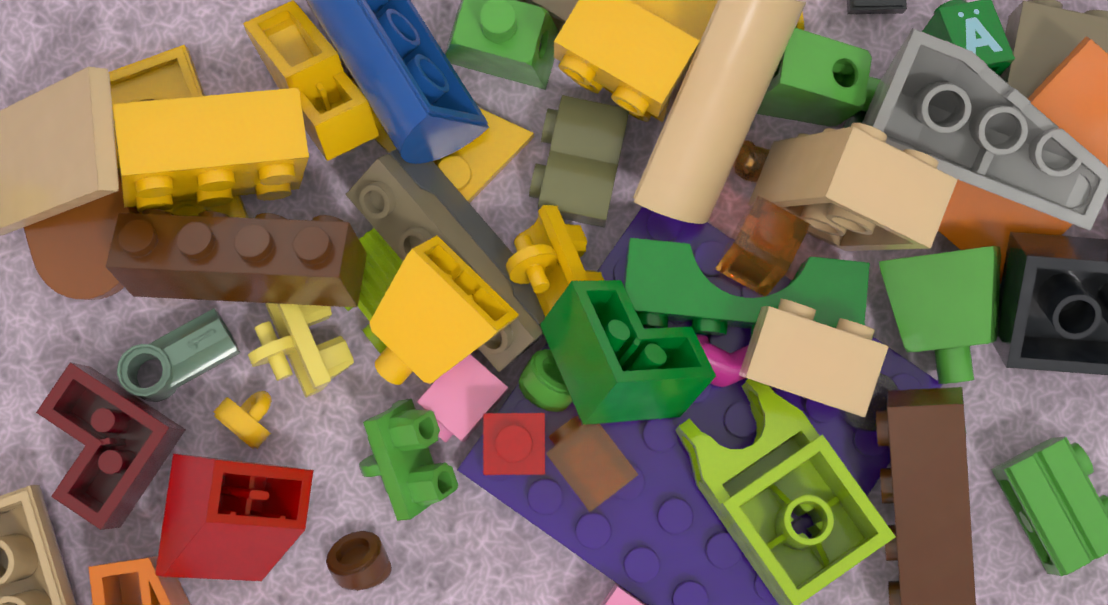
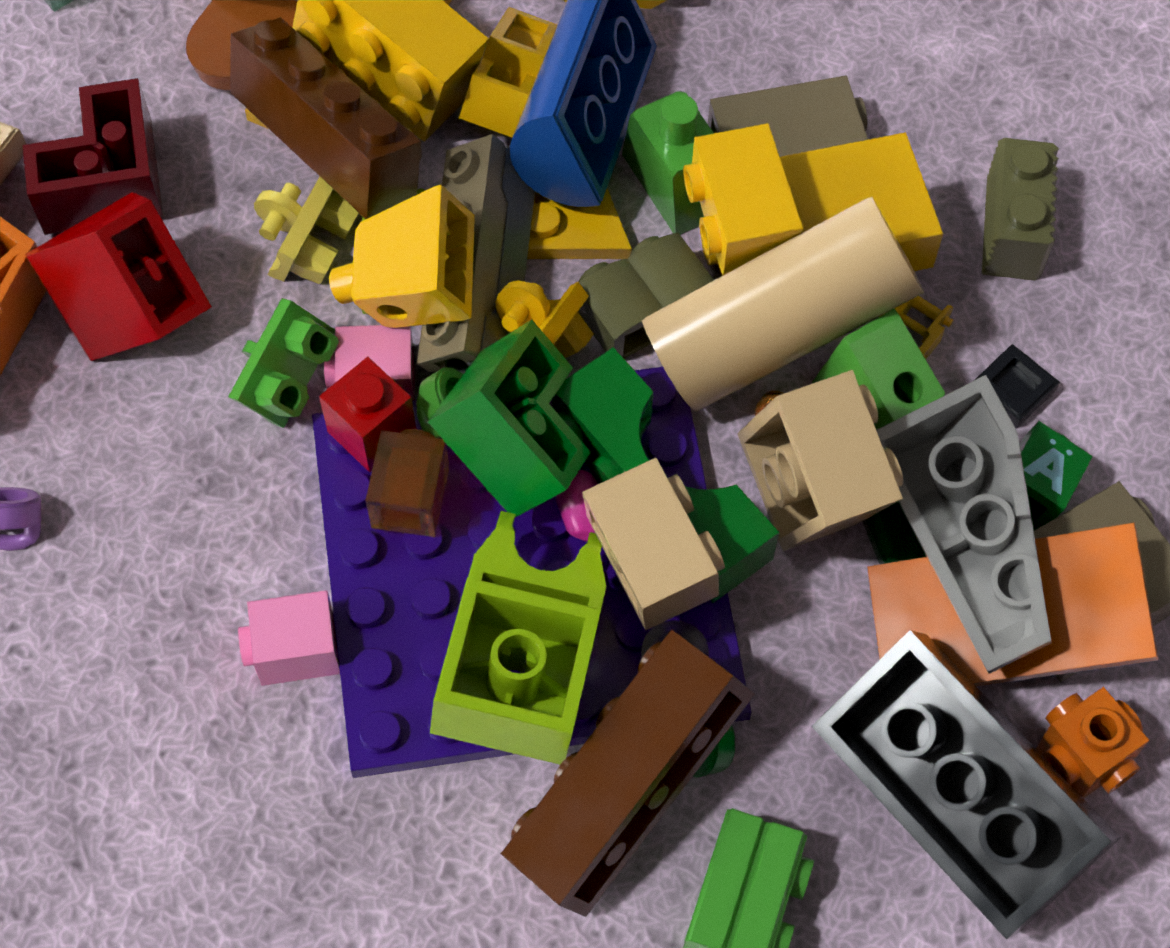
camera: 45 degrees right, 20 degrees down
(183, 356) = (210, 159): sand green piece -> none
(244, 419) = (207, 240): yellow tile -> none
(359, 561) = (172, 404): reddish brown tile -> none
(762, 246) = (712, 449): clear orange brick -> none
(946, 305) = (815, 641): bright green torso -> none

